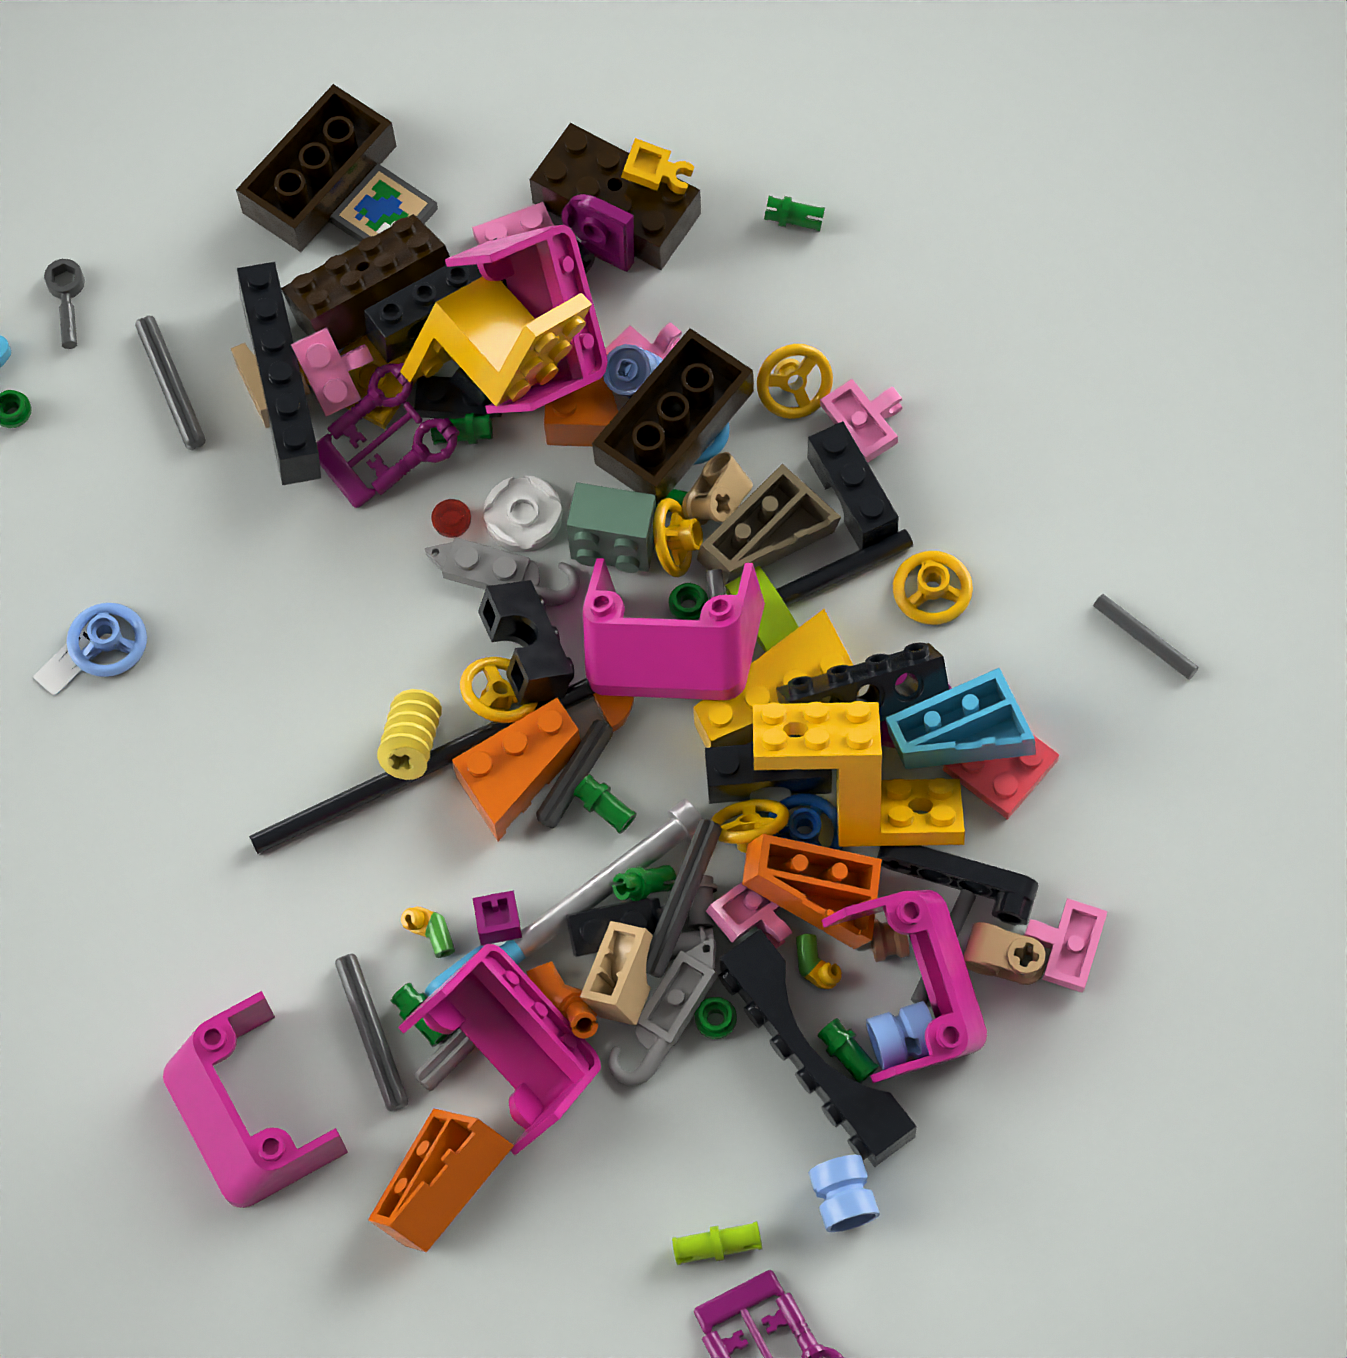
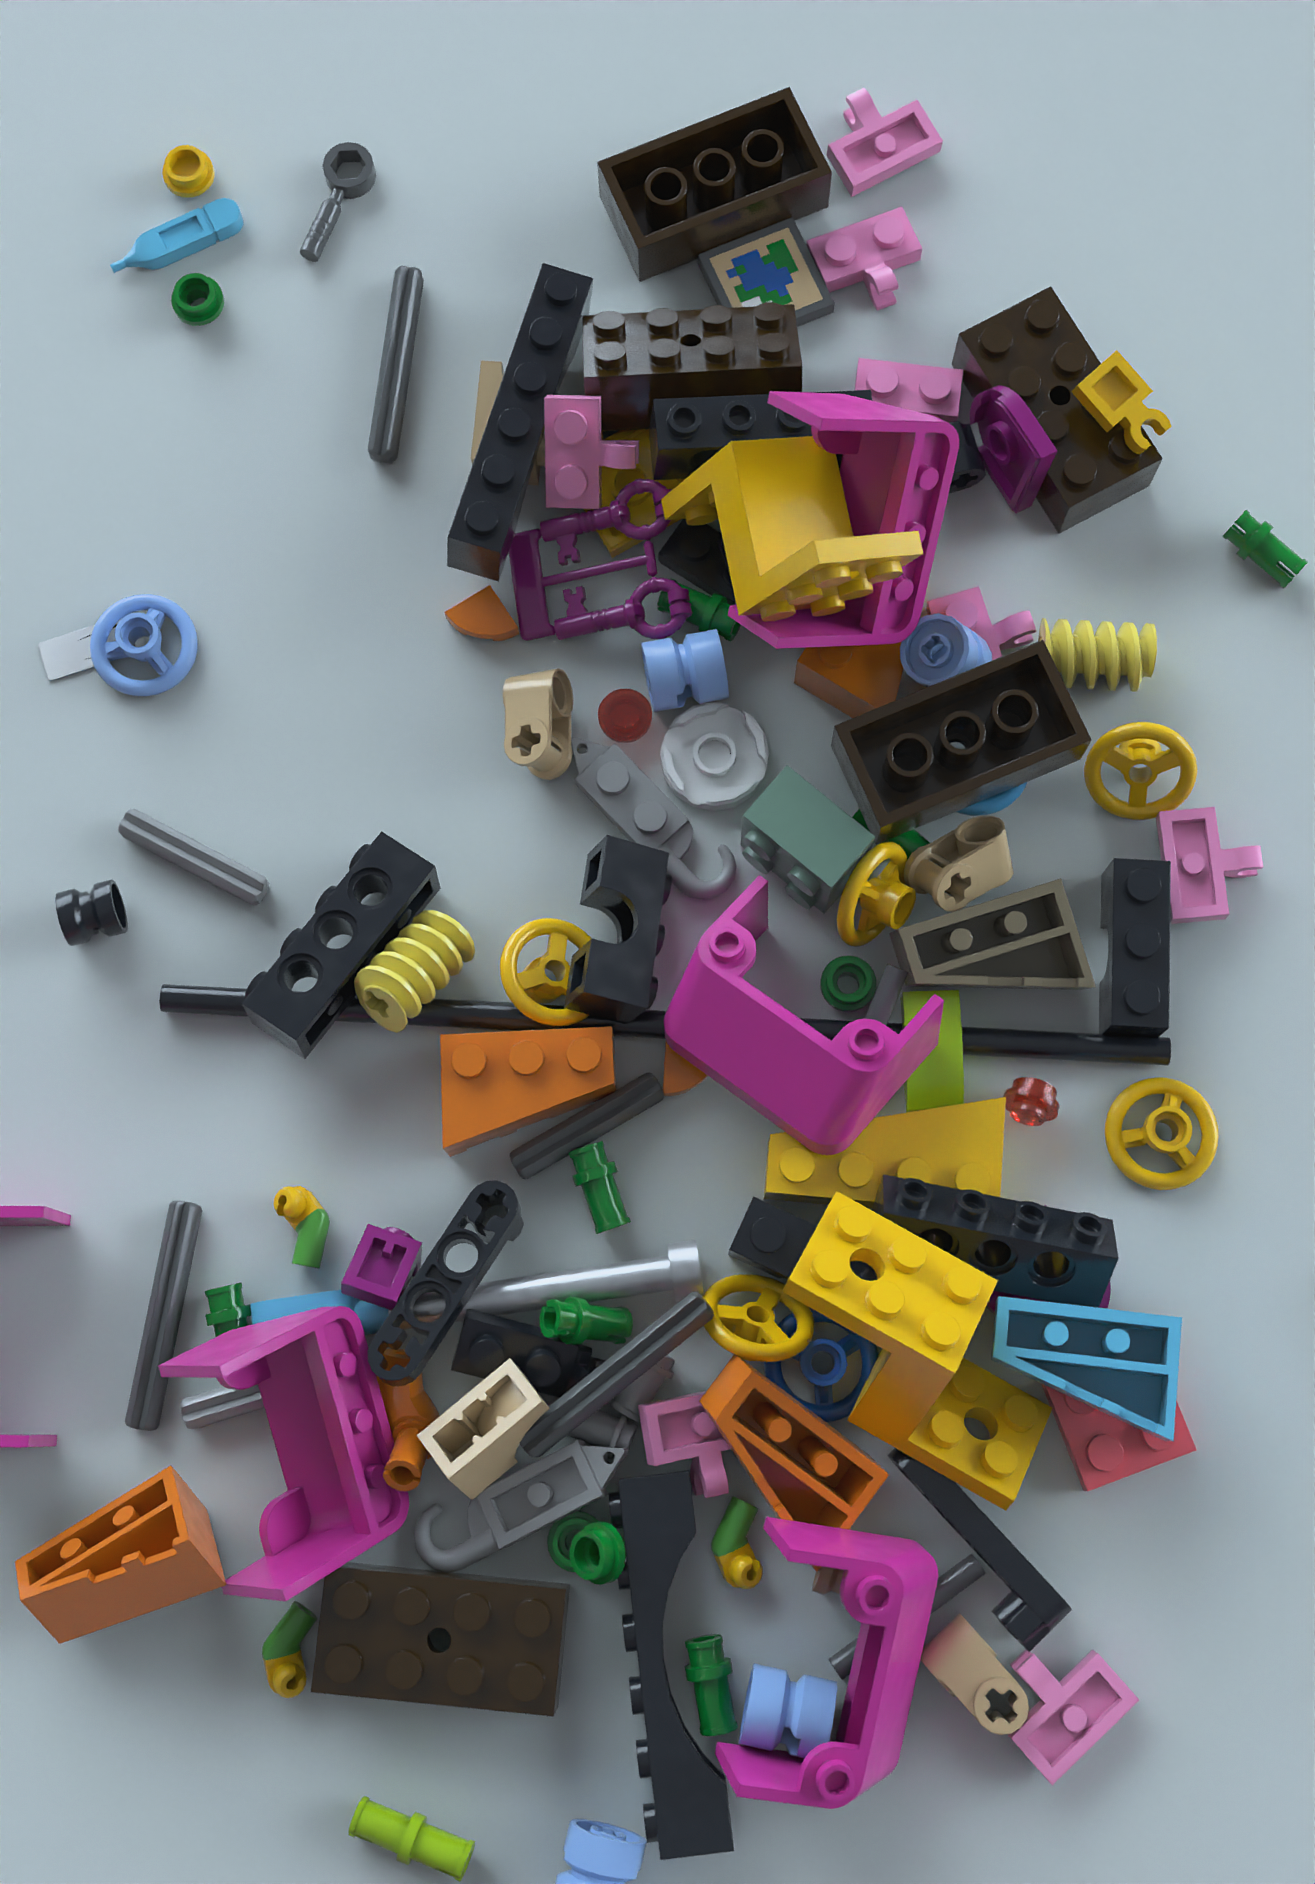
camera: 30 degrees right, 10 degrees up
(173, 818) = (86, 913): none -> black wheel
(220, 749) = (193, 857): none -> light grey axle
(322, 506) = (483, 617): none -> orange tile
(354, 800) = (305, 1017): none -> black brick
(399, 548) = (536, 719): none -> tan piece
(408, 92) = (880, 144): none -> bright pink plate
(440, 160) = (867, 254): none -> bright pink plate
(477, 466) = (685, 670): none -> light blue wheel
(551, 903) = (438, 1278): none -> black beam
(570, 1186) = (283, 1653): none -> arm
(633, 1140) = (500, 1628): none -> dark brown brick
(724, 1005) = (598, 1553): none -> green plate
(732, 322) = (1101, 653): none -> light yellow piece
(843, 608) = (1031, 1101): none -> clear red plate

